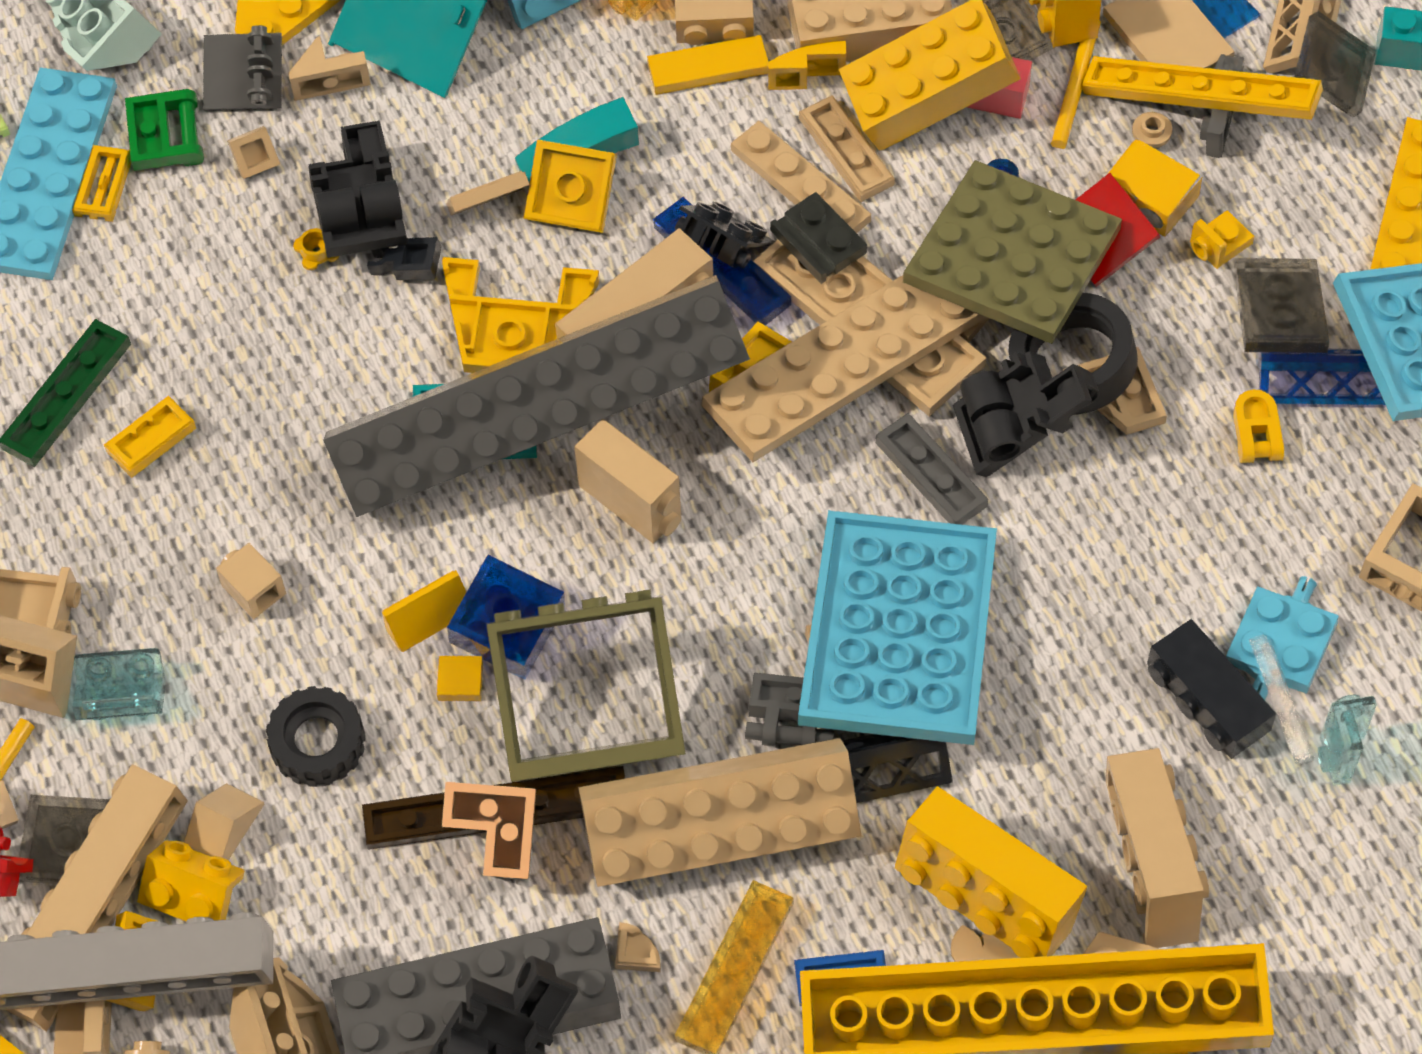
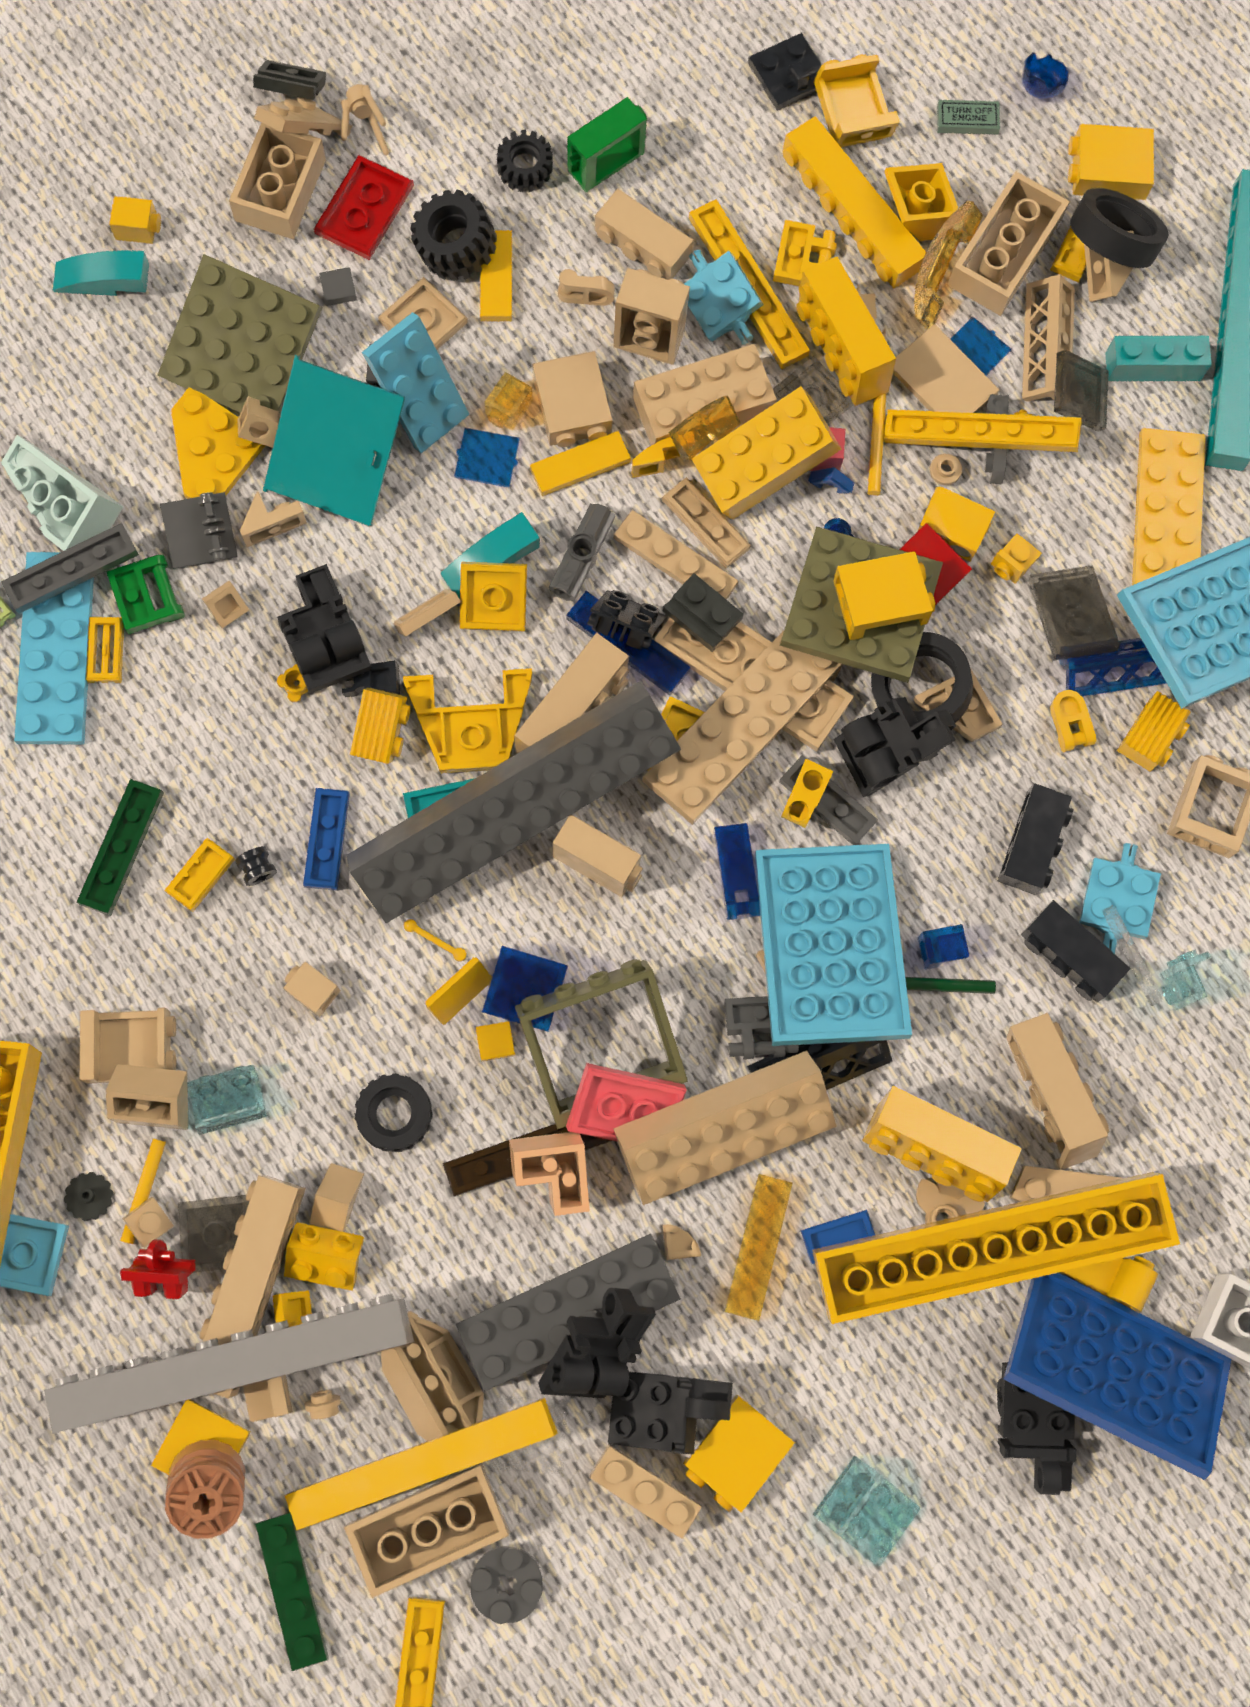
camera: 20 degrees left, 15 degrees up
(83, 85) = (69, 568): none -> dark grey plate
(218, 435) = (255, 866): none -> black wheel
(308, 423) = (326, 839): none -> blue tile
(388, 533) = (459, 954): none -> yellow hinge
(401, 303) = (379, 726): none -> yellow brick
(589, 751) = (616, 1097): none -> coral tile
(599, 44) = (487, 457): none -> clear blue piece
(676, 169) = (575, 568): none -> dark grey piece
(800, 530) = (736, 870): none -> clear blue plate
(859, 35) = (704, 426): none -> clear yellow slope
(902, 448) = (806, 793): none -> yellow leg
(1010, 119) = (831, 477): none -> blue tile
(1036, 230) = (883, 593): none -> yellow panel
(1040, 705) = (950, 985): none -> dark green bar
(1041, 652) = (943, 946): none -> clear blue panel
(1185, 553) = (1036, 839): none -> black brick
(1360, 454) = (1154, 732): none -> yellow brick

